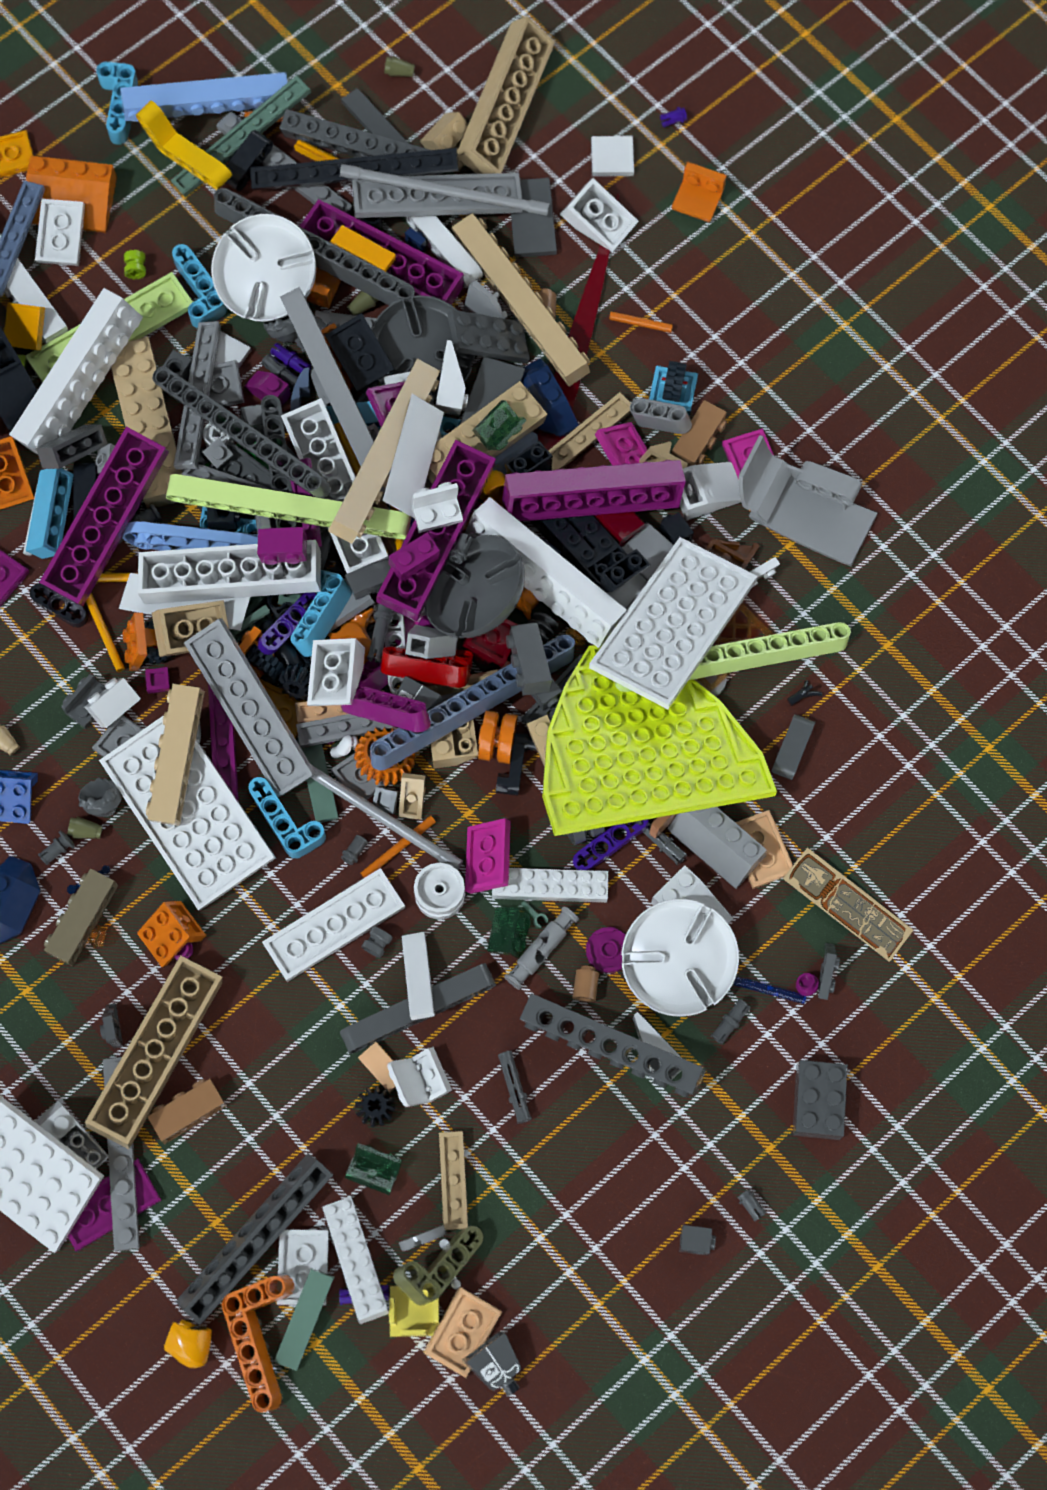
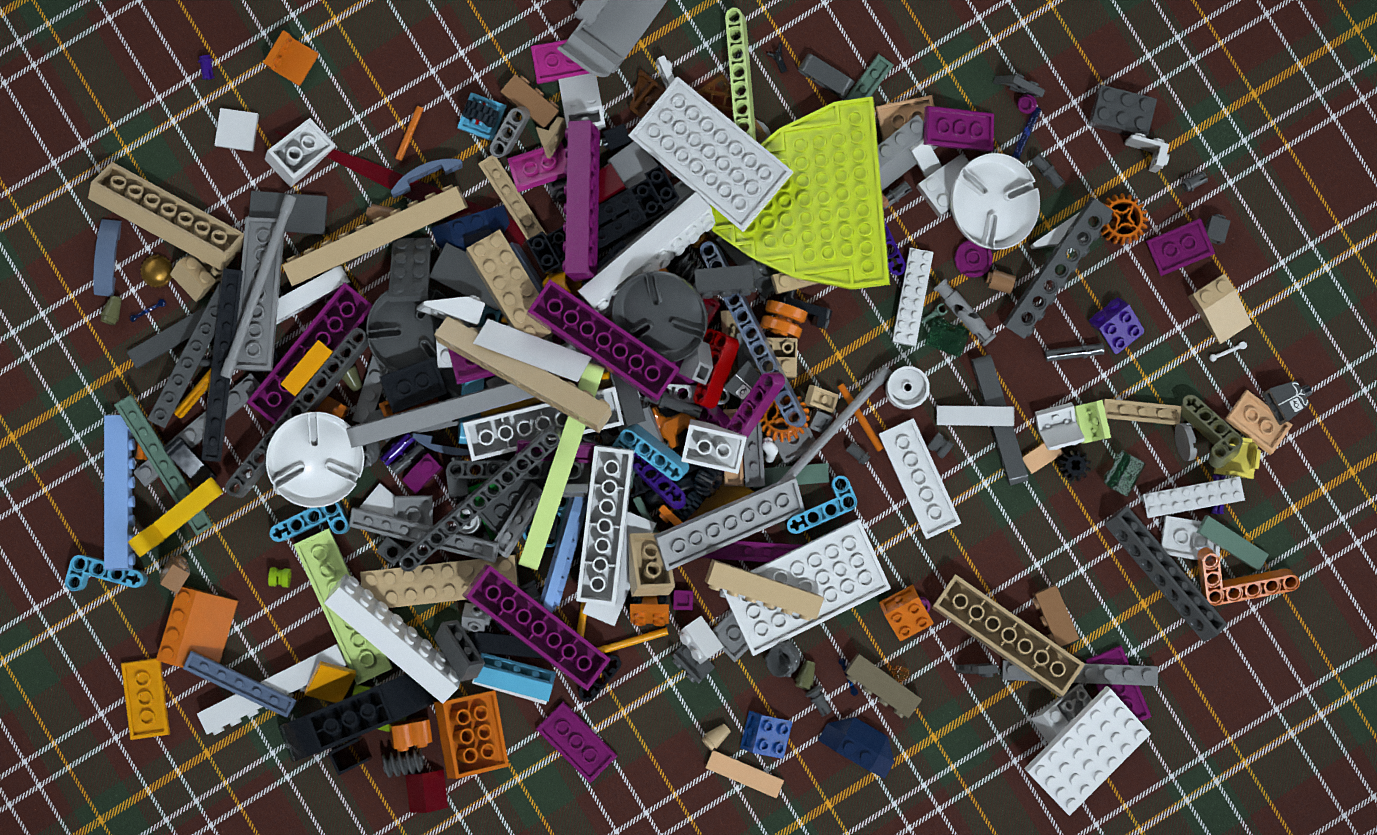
camera: 80 degrees left, 15 degrees up
(60, 232) = (236, 641): white plate -> none
(124, 156) = (174, 573): none -> medium nougat brick
(189, 1343) = (1238, 634): light orange piece -> none
(218, 453) = (487, 522): light grey plate -> none
(282, 545) = (598, 474): magenta brick -> none
(414, 113) = (161, 302): none -> clear blue hinge
(414, 557) = (633, 362): magenta brick -> none
(416, 240) = (297, 320): dark blue plate -> none
(431, 1118) = (1092, 421): none -> yellowish green bracket
(436, 507) = (593, 336): white bracket -> none
(447, 102) = (156, 271): none -> pearl gold hat
(454, 52) = (105, 257): none -> sand blue slope
(462, 545) = (622, 322): dark grey pin -> none
(482, 302) = (377, 270): light grey slope -> none
(487, 856) = (883, 343): dark pink plate -> none
(499, 426) = (513, 272): clear green bracket -> none
(555, 1134) = (1117, 324): none -> dark purple bracket
(557, 1299) = (1242, 345): none -> white hinge
(580, 320) = (448, 166): none -> sand blue slope
(597, 1261) = (1220, 308): none -> tan slope
(666, 1197) = (1180, 247): none -> magenta tile
(678, 1114) = (1136, 229): none -> orange gear
(719, 871) = (925, 158): none -> white tile
(759, 904) = (958, 129): none -> magenta tile
(772, 1151) = (1156, 146): none -> white bracket
(800, 800) = (871, 78): none -> sand green tile
(848, 904) = (965, 58): sticker -> none

